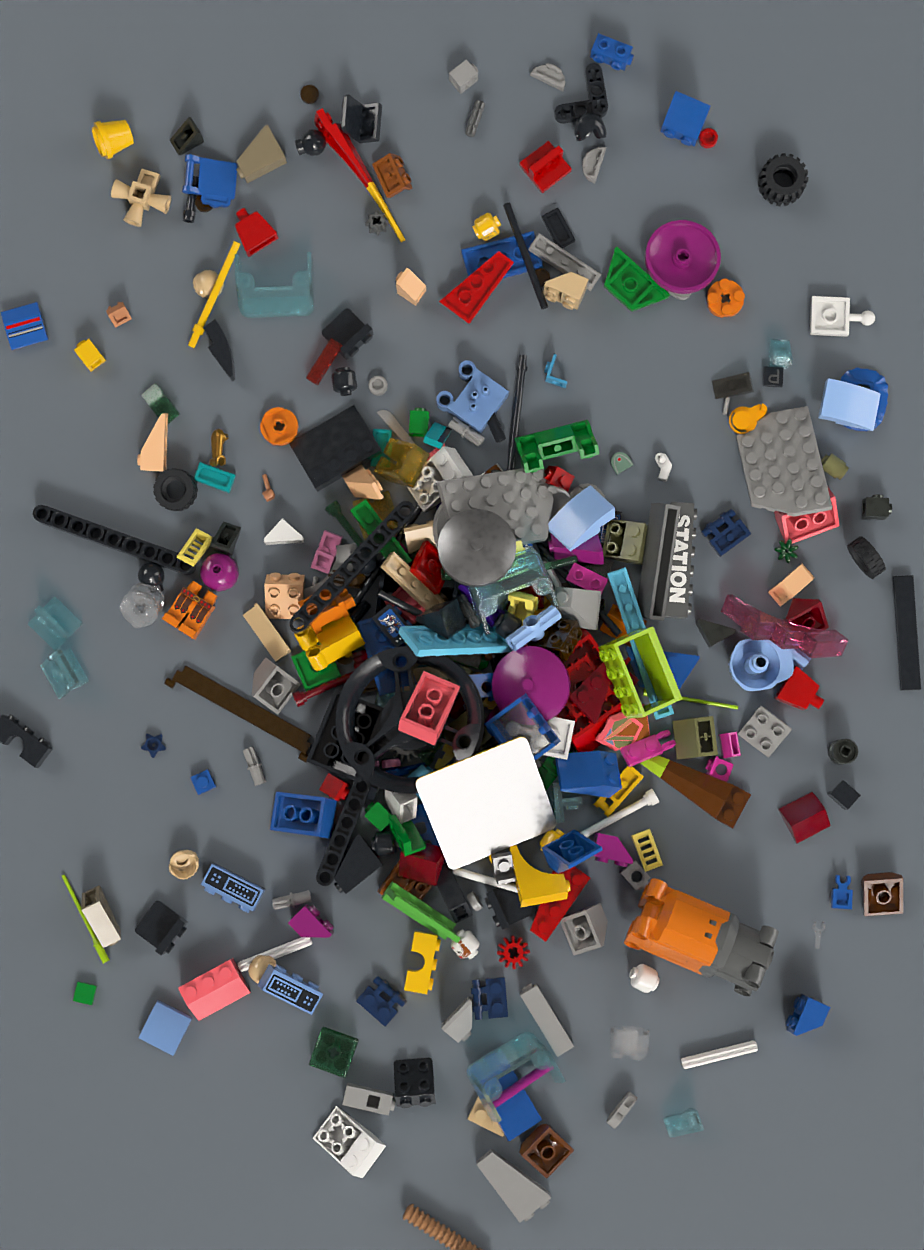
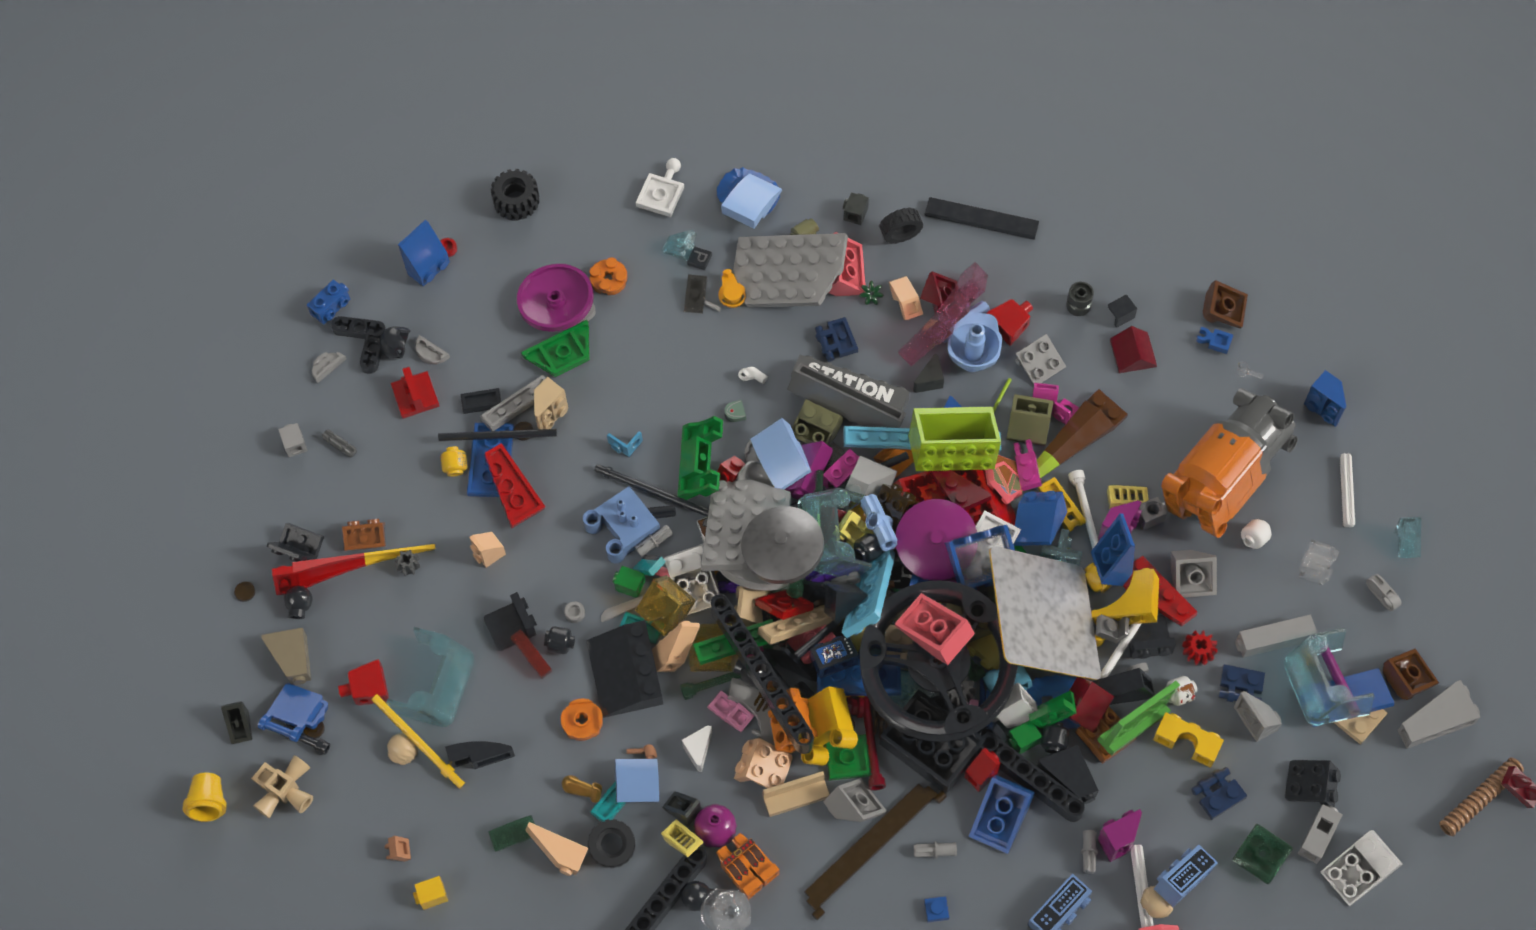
camera: 70 degrees left, 20 degrees down
(237, 492) = (637, 780): none -> medium blue slope

